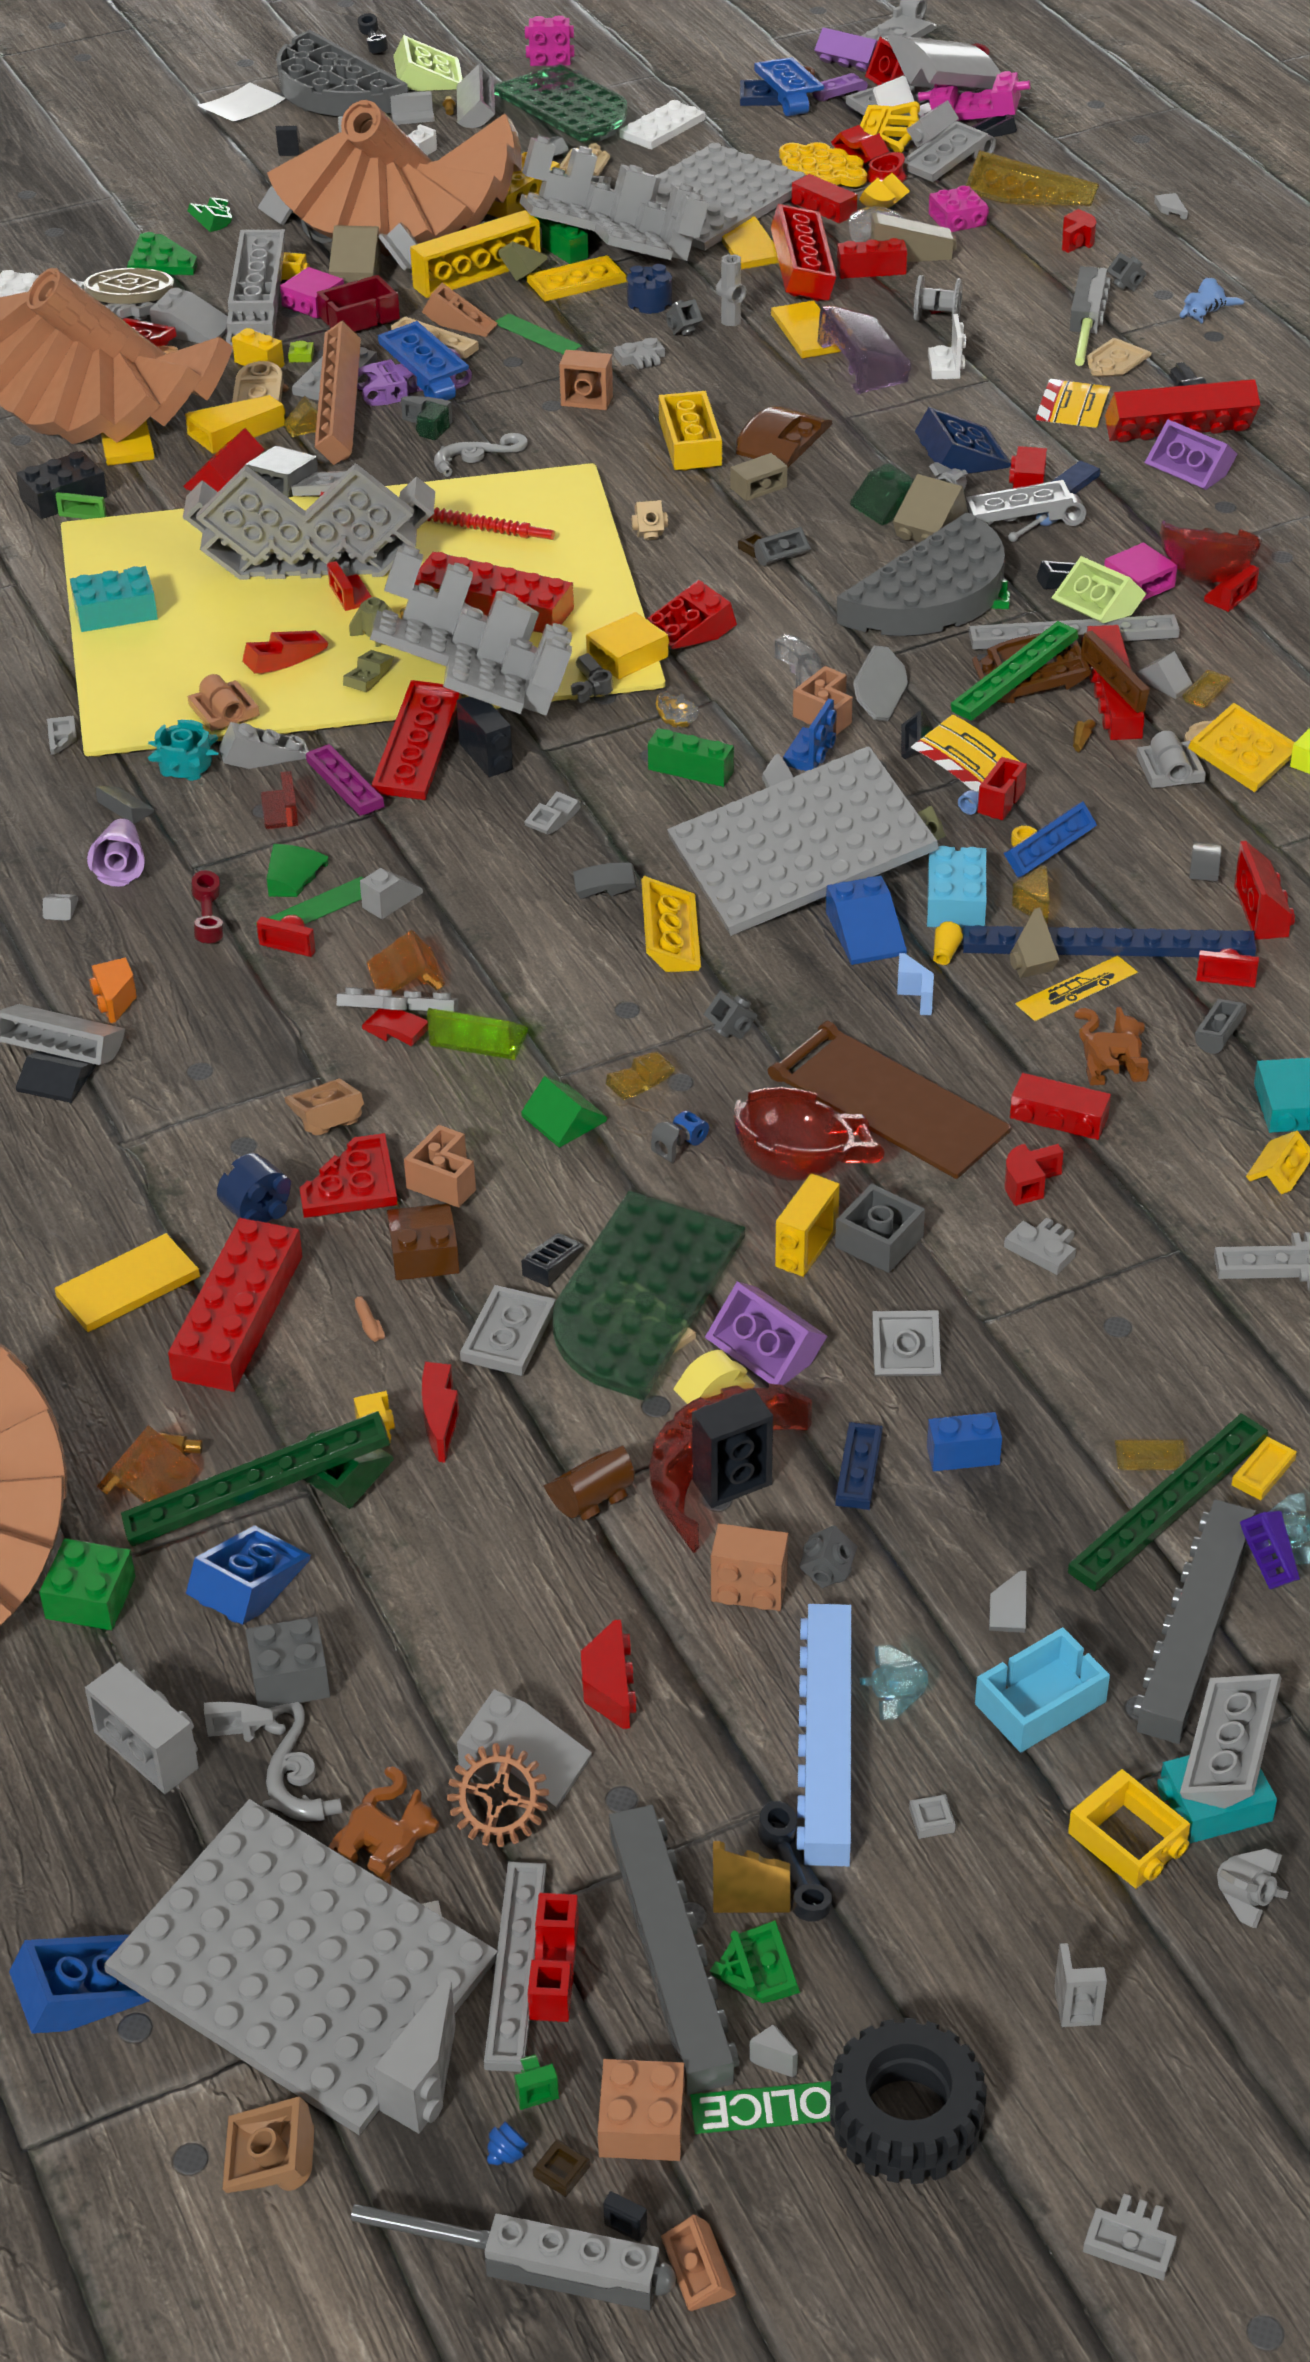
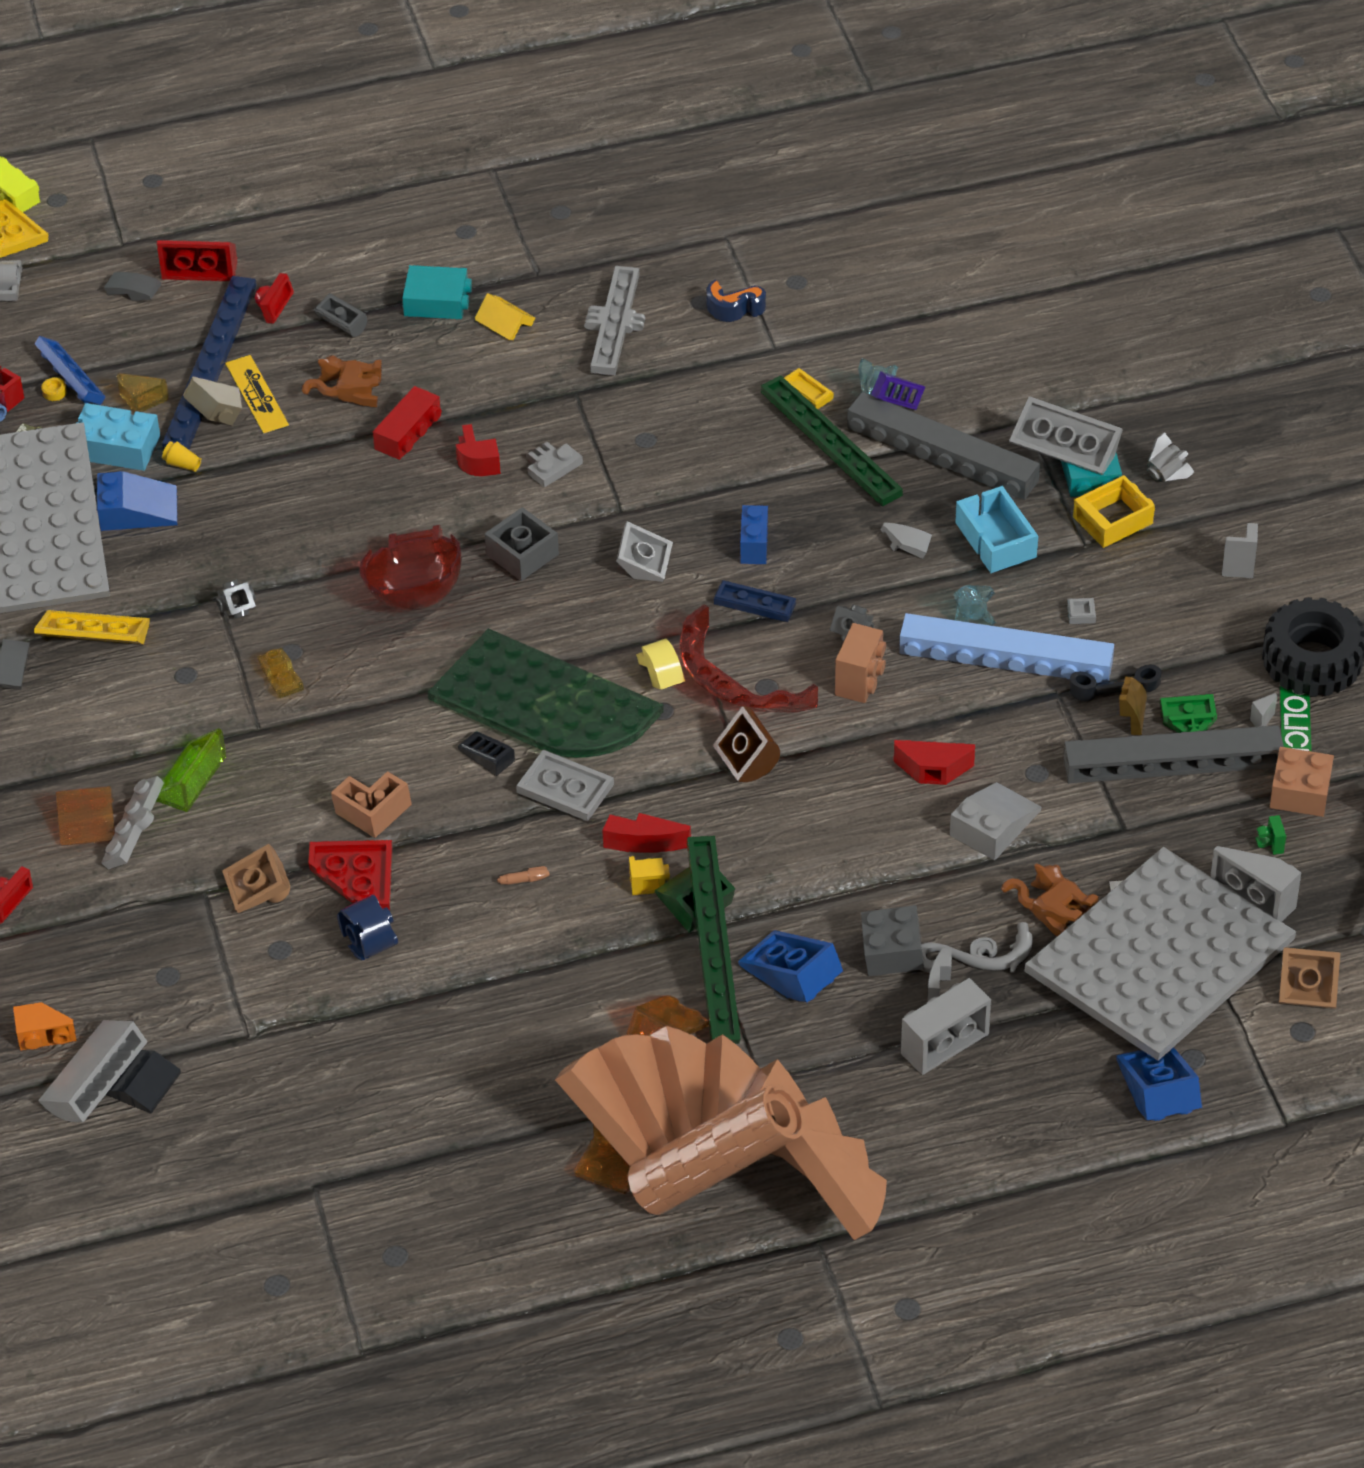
camera: 80 degrees left, 5 degrees up
(87, 1584) = (795, 1051): green brick -> none
(127, 1282) = (436, 1035): yellow tile -> none
(183, 1444) = (642, 997): pearl gold bar -> none
(235, 1305) = (492, 954): red brick -> none
(396, 1023) = (165, 823): red slope -> none
(423, 1241) = (441, 829): reddish brown slope -> none
(505, 2145) = (1321, 857): blue plate -> none
(516, 1947) = (1153, 838): light grey tile -> none
(529, 1803) = (1043, 823): nougat gear -> none
(554, 1957) = (1161, 812): red arch -> none
(561, 1112) = (314, 728): green slope -> none
(561, 2167) = (1333, 833): dark brown tile -> none
(684, 1127) = (365, 647): leg -> none
(732, 1447) = (750, 648): black brick -> none
(764, 1335) = (614, 630): medium lavender slope -> none
(807, 1225) = (499, 563): yellow window -> none
(894, 1100) = (359, 523): reddish brown flag -> none
(915, 980) = (220, 483): light blue slope -> none
(1149, 1454) = (782, 443): clear yellow tile -> none

